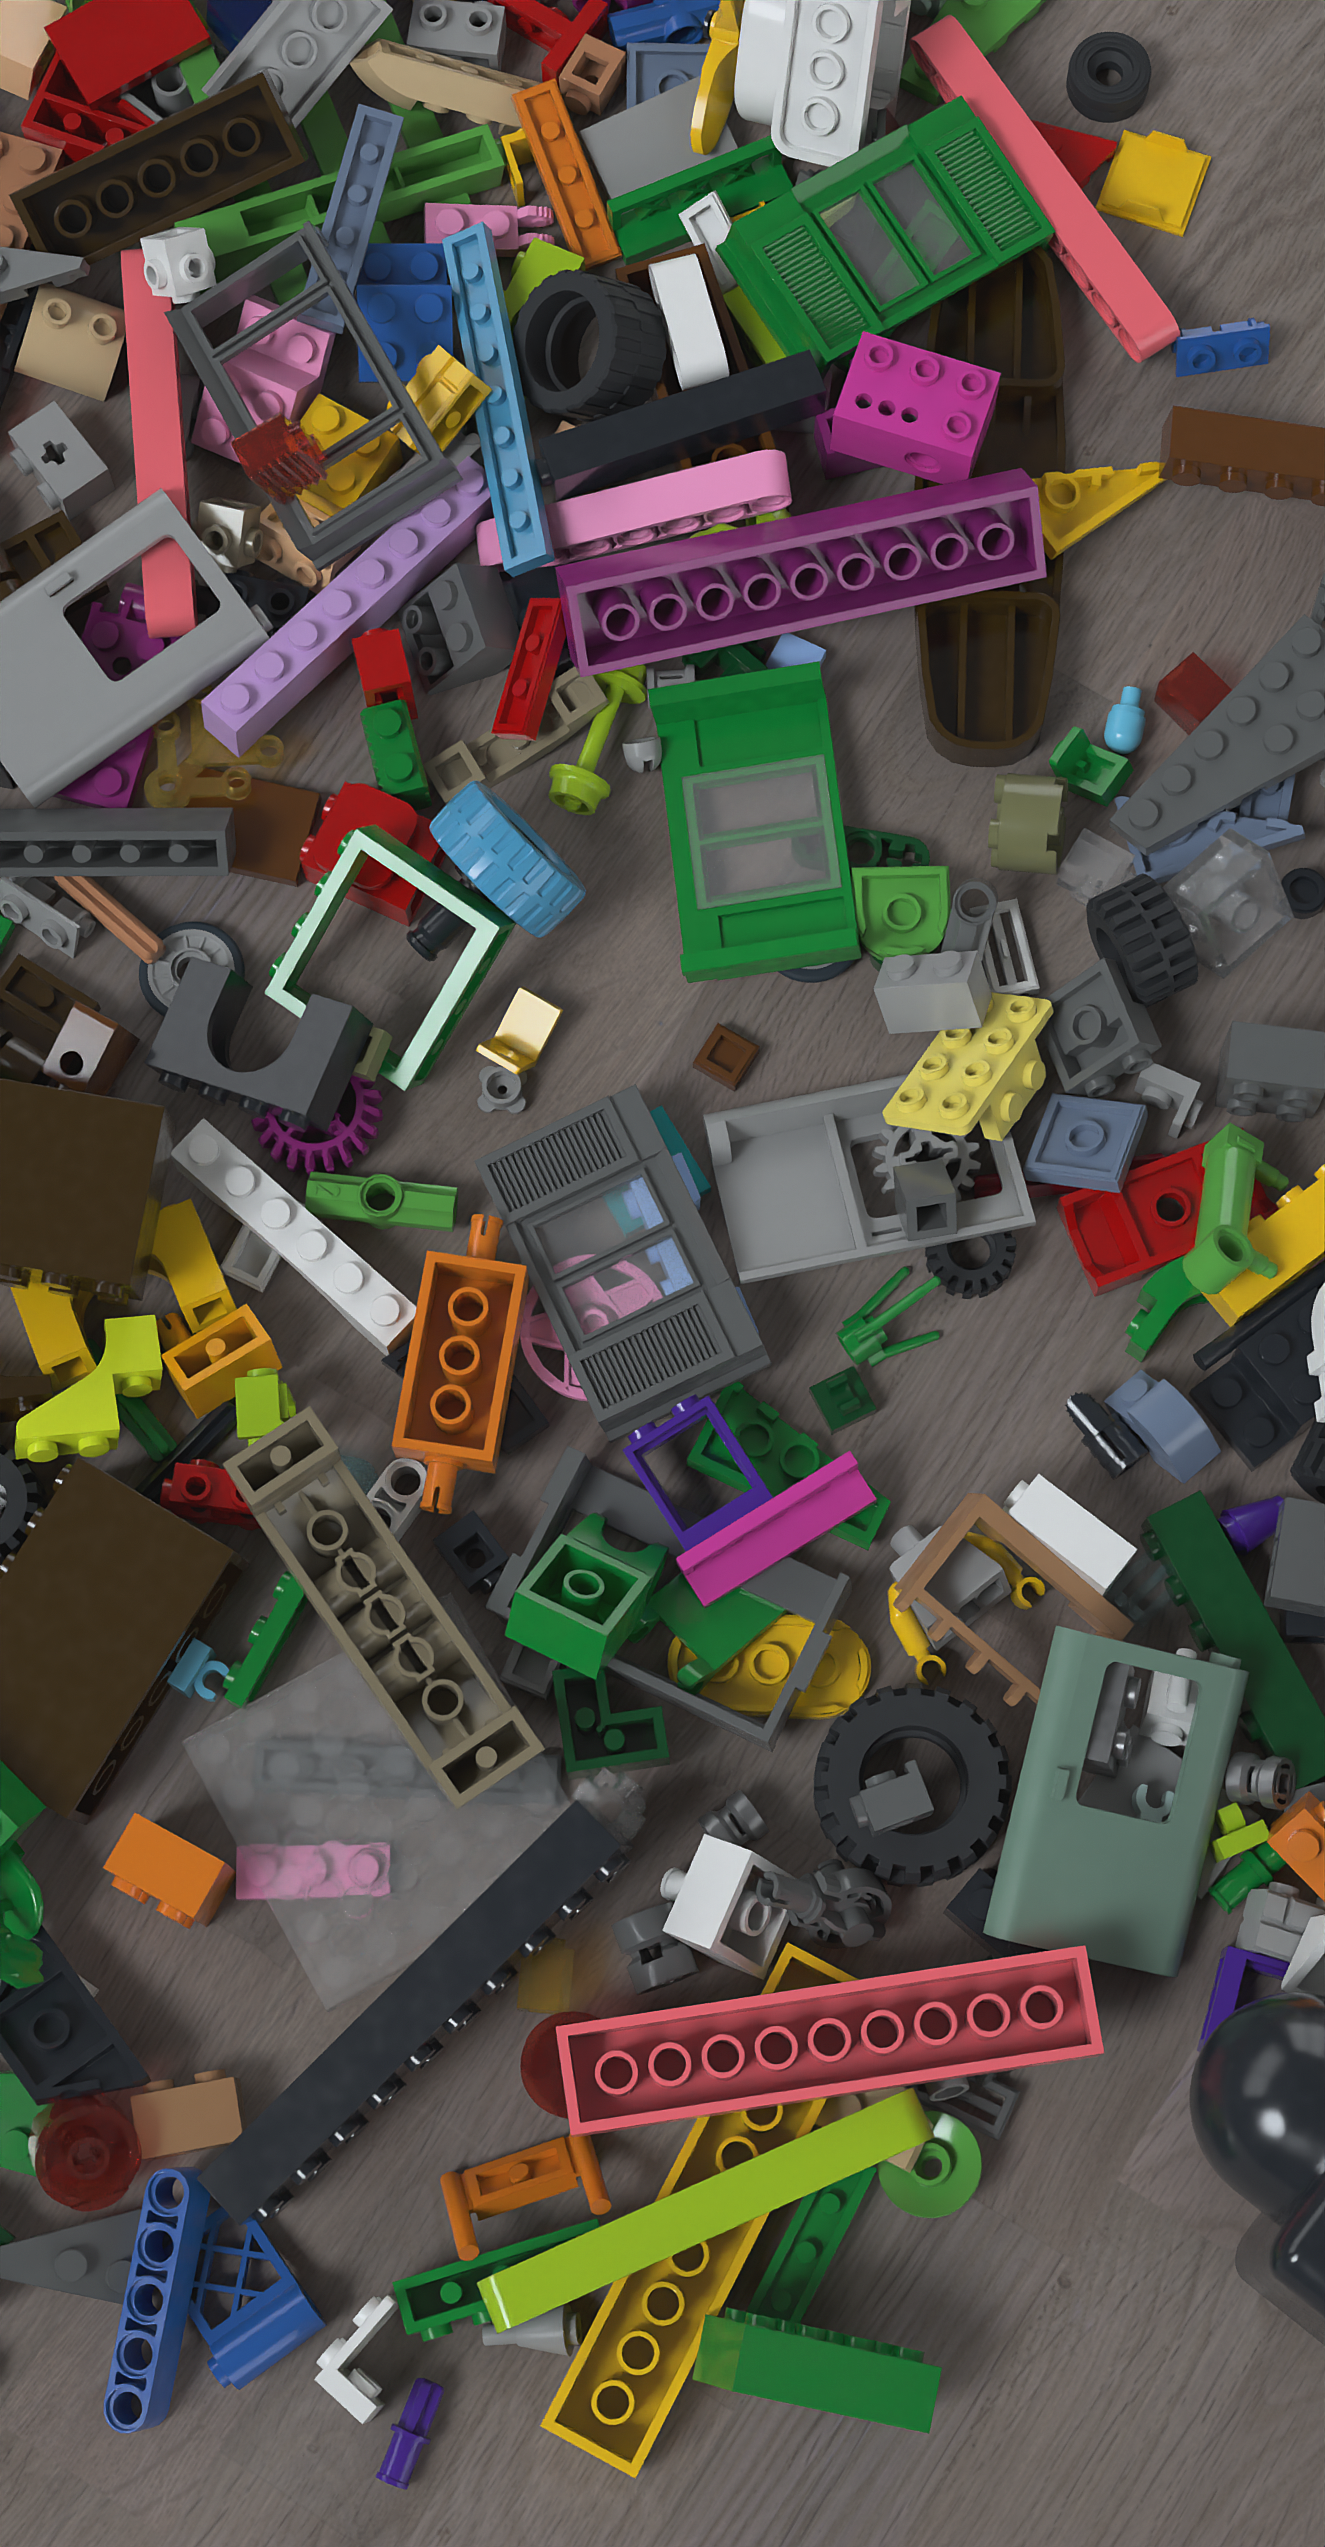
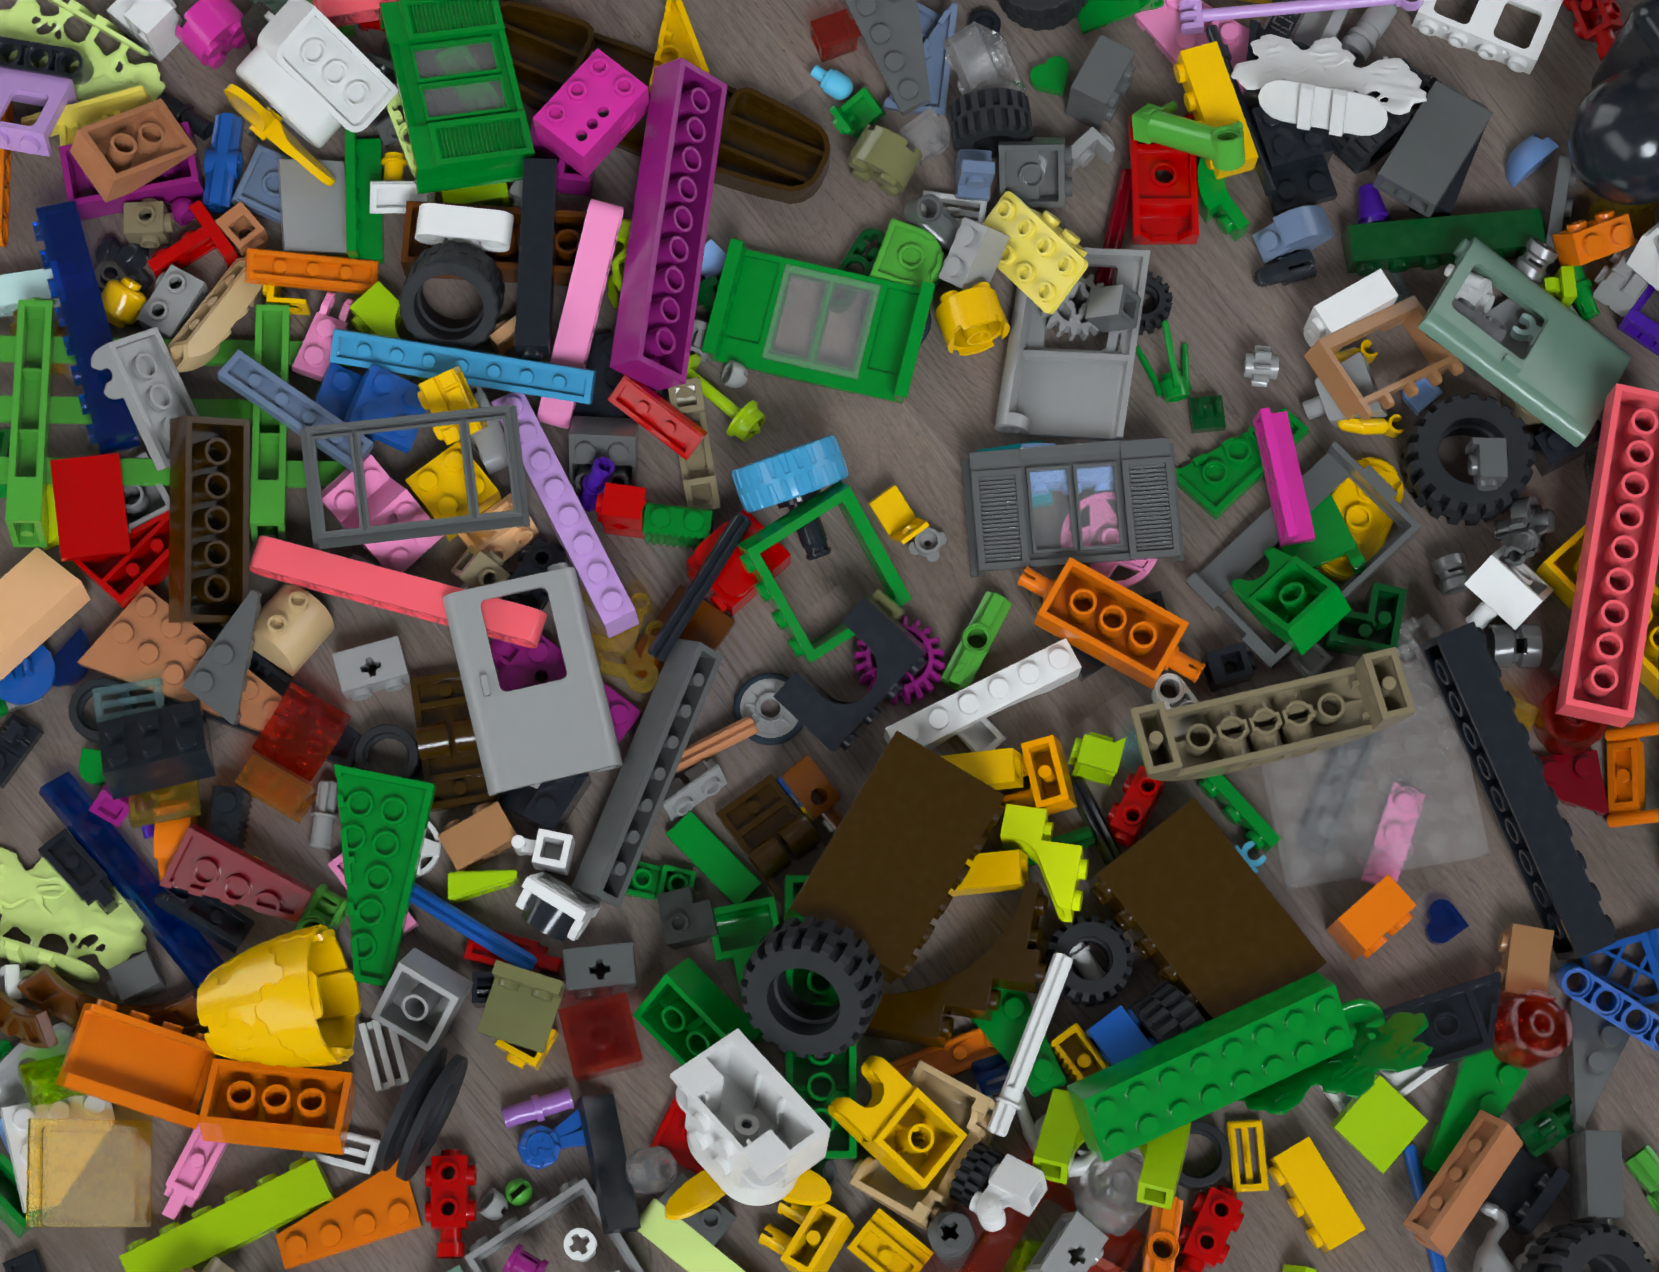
camera: 75 degrees left, 0 degrees up
(178, 263) = (287, 526): white brick -> none
(214, 1986) = (1444, 922): none -> clear blue tile
(281, 457) = (469, 503): clear red brick -> none
(306, 805) = (699, 587): none -> black axle
(414, 625) = (595, 482): none -> dark purple axle
(489, 2102) = (1577, 780): none -> dark red wing
(651, 1437) = (1265, 499): dark purple window -> none
(726, 1057) = (957, 400): reddish brown tile -> none
(841, 1023) = (971, 319): none -> yellow brick
(939, 1446) = (1260, 366): none -> light grey gear
(988, 1694) = (1426, 396): none -> light blue tile
(1058, 951) = (973, 174): none -> sand blue brick
(1085, 1142) = (1102, 207): sand blue plate -> none
(1263, 1005) = (1050, 76): none -> green tile

